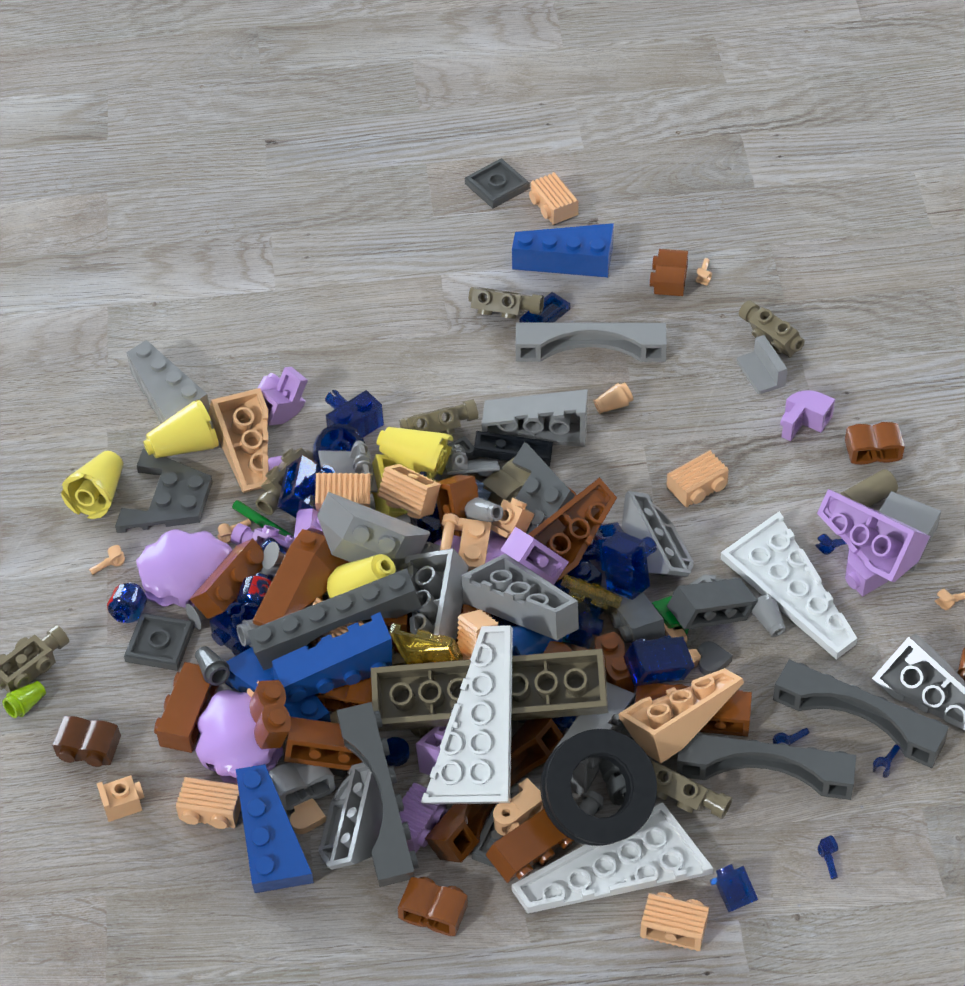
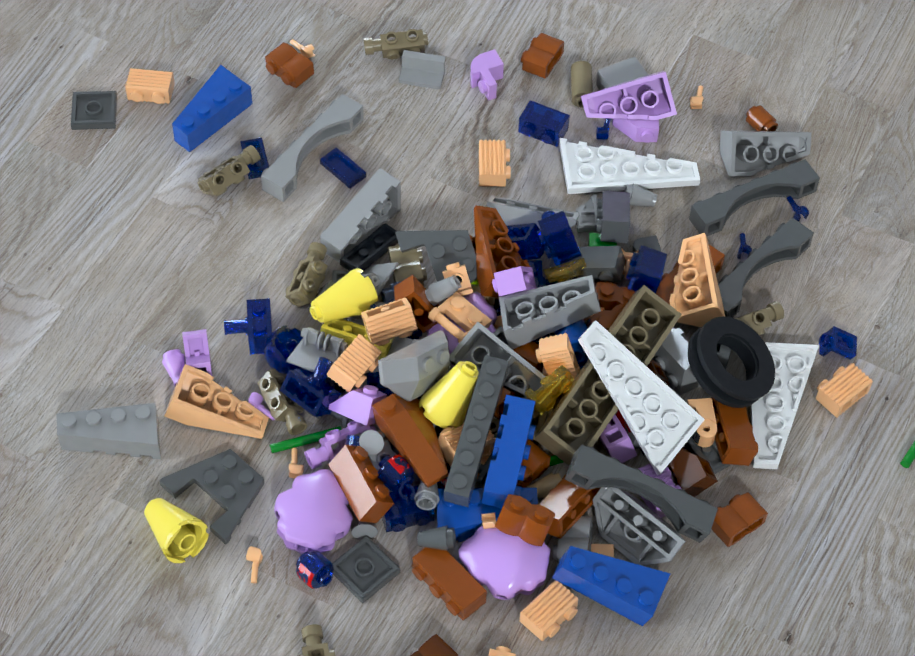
camera: 60 degrees left, 5 degrees up
(182, 433) = (178, 438): light yellow cone -> none
(593, 376) = (343, 168): none -> clear blue tile
(614, 398) = (376, 160): light nougat cone -> none
(786, 489) = (543, 123): none -> clear blue brick
(825, 848) = (841, 280): clear blue hand -> none

